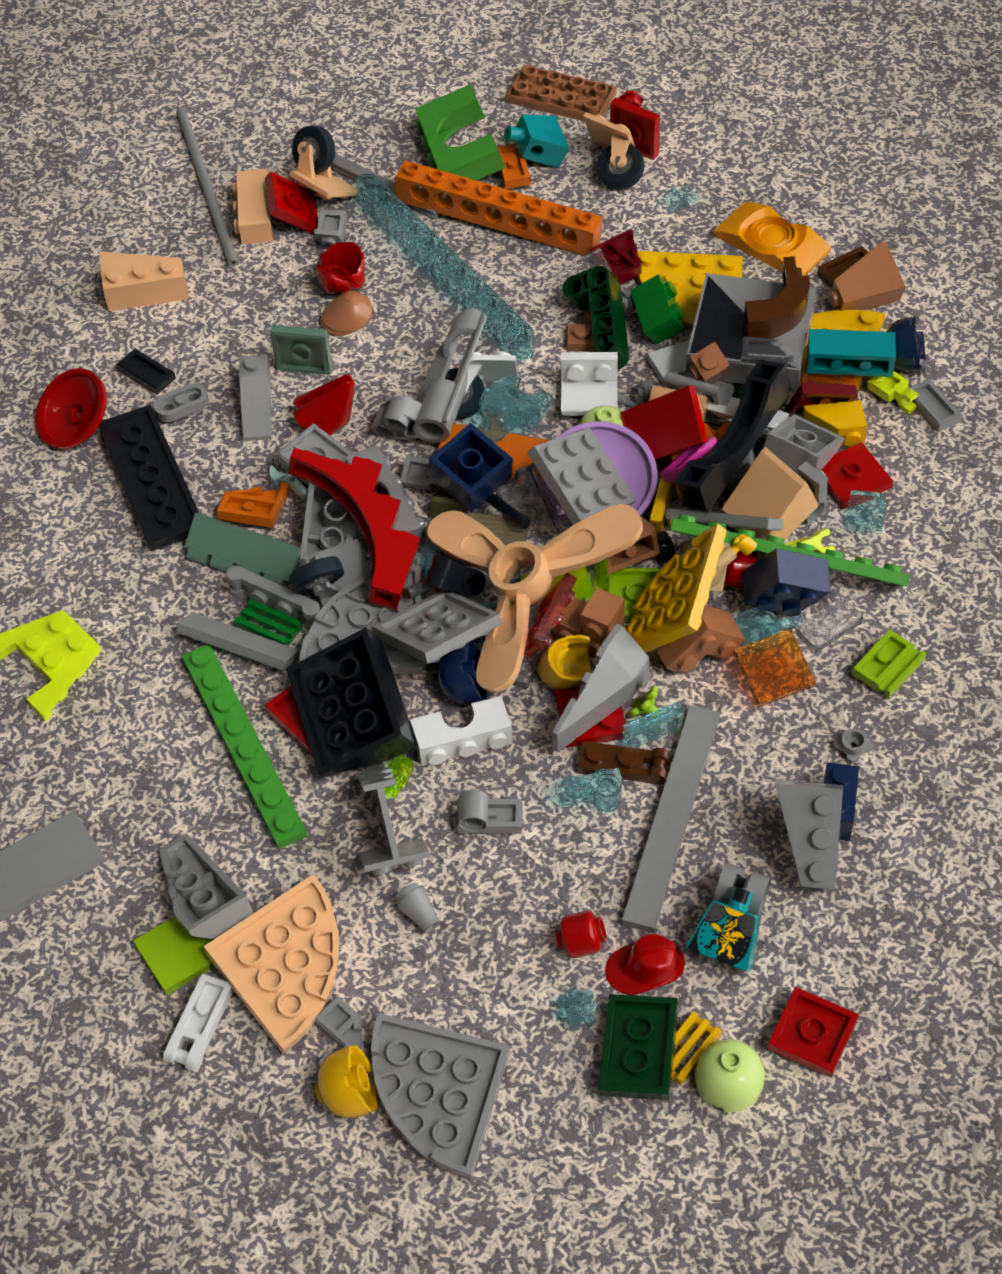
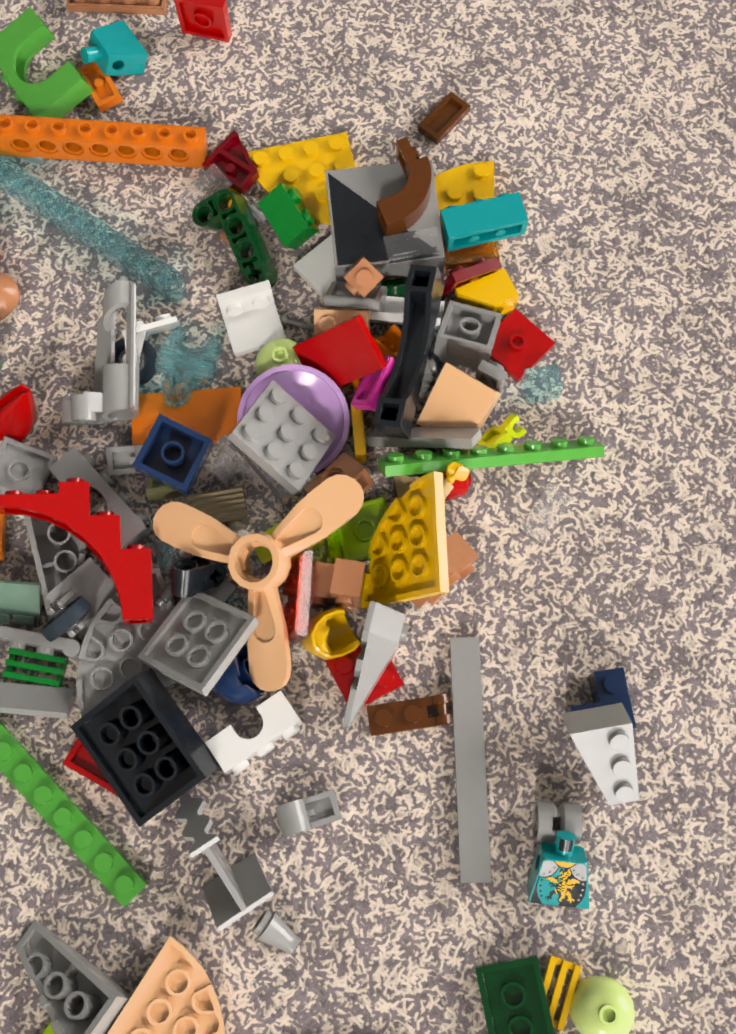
camera: 20 degrees left, 20 degrees up
(403, 770) = (215, 795): clear neon green arm -> none
(508, 511) = (223, 487): black bar -> none
(577, 1008) = (446, 977): clear light blue plant -> none
(580, 338) = (225, 263): nougat plate -> none
(581, 934) = (430, 913): red head -> none
(589, 788) = (375, 761): clear light blue plate -> none
(621, 162) = (201, 56): plate -> none
(644, 965) = (493, 919): red piece -> none
(645, 389) = (305, 307): light grey plate -> none
(645, 705) = (410, 650): lime plant -> none
(653, 725) = (425, 672): clear light blue tile -> none
(666, 546) = (375, 474): black tile -> none
(680, 197) = (268, 79): clear light blue piece -> none
(762, 624) = (489, 536): clear light blue piece -> none
(769, 237) = (366, 104): light orange slope -> none
(774, 668) = (513, 576): clear orange tile -> none
(786, 582) = (502, 493): dark blue piece -> none
(813, 1032) = (659, 942): red plate -> none
(857, 737) = (612, 630): light grey plate -> none
(868, 282) = (471, 132): nougat slope -> none
(889, 663) = (609, 539): lime plate -> none
(894, 388) = (528, 243): neon yellow plate -> none
(909, 345) = (527, 186): dark blue cylinder -> none
(935, 406) = (564, 248): light grey tile -> none

